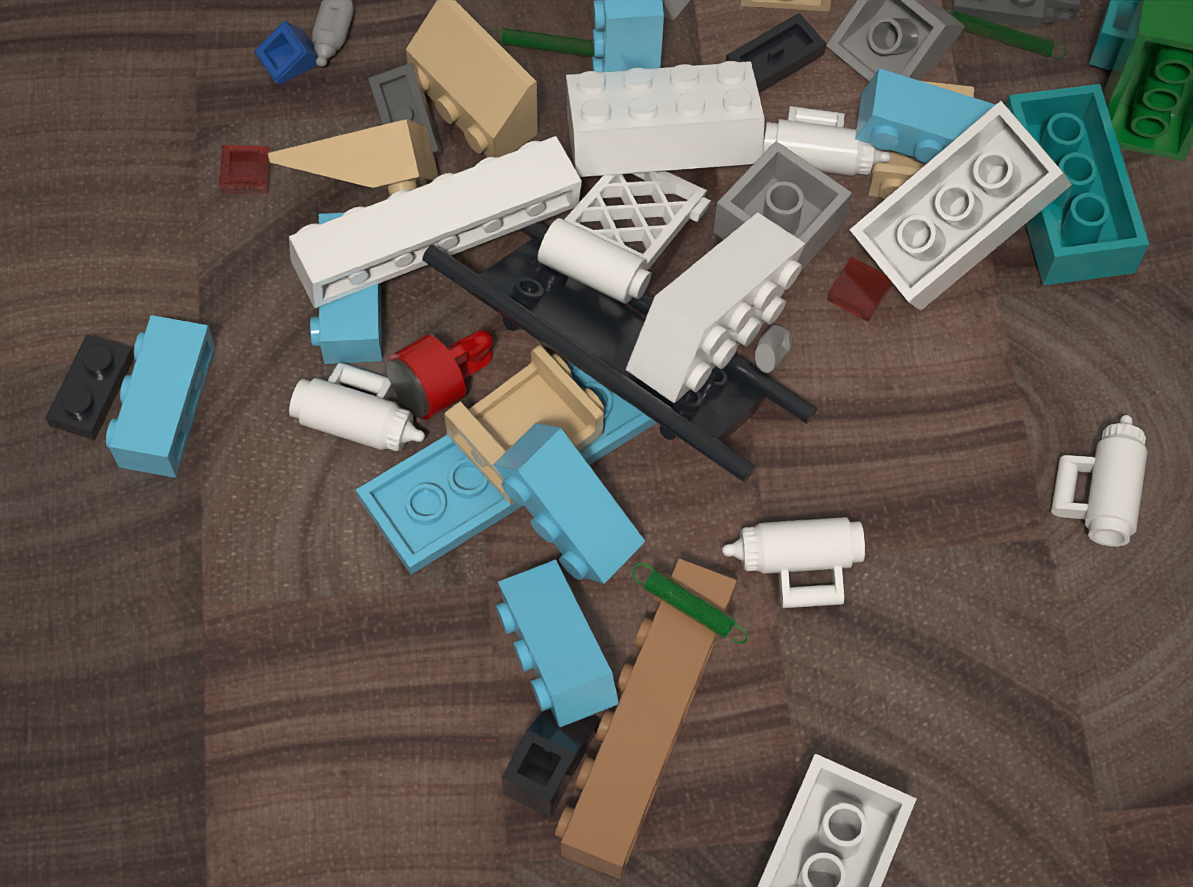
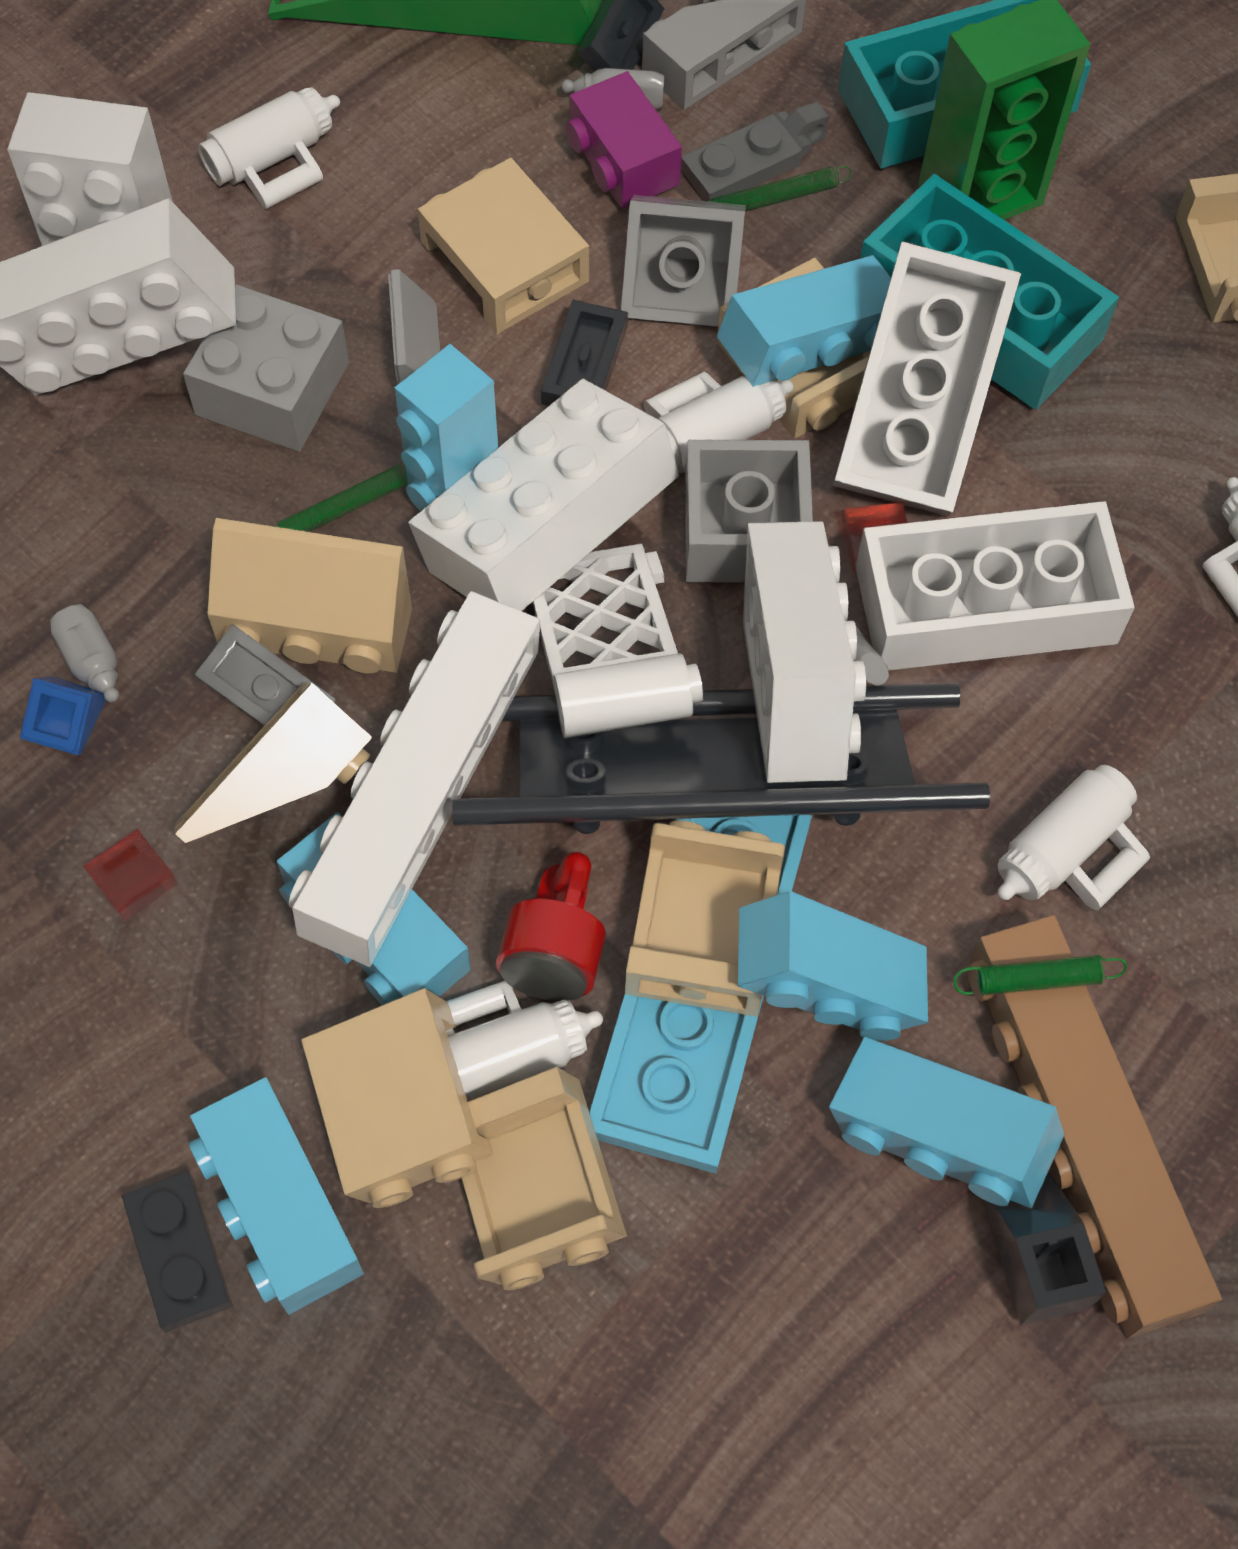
camera: 40 degrees left, 0 degrees up
(265, 390) = (394, 1100): none -> tan panel
(303, 491) = (544, 1185): none -> tan panel
(893, 365) = (993, 585): none -> white brick

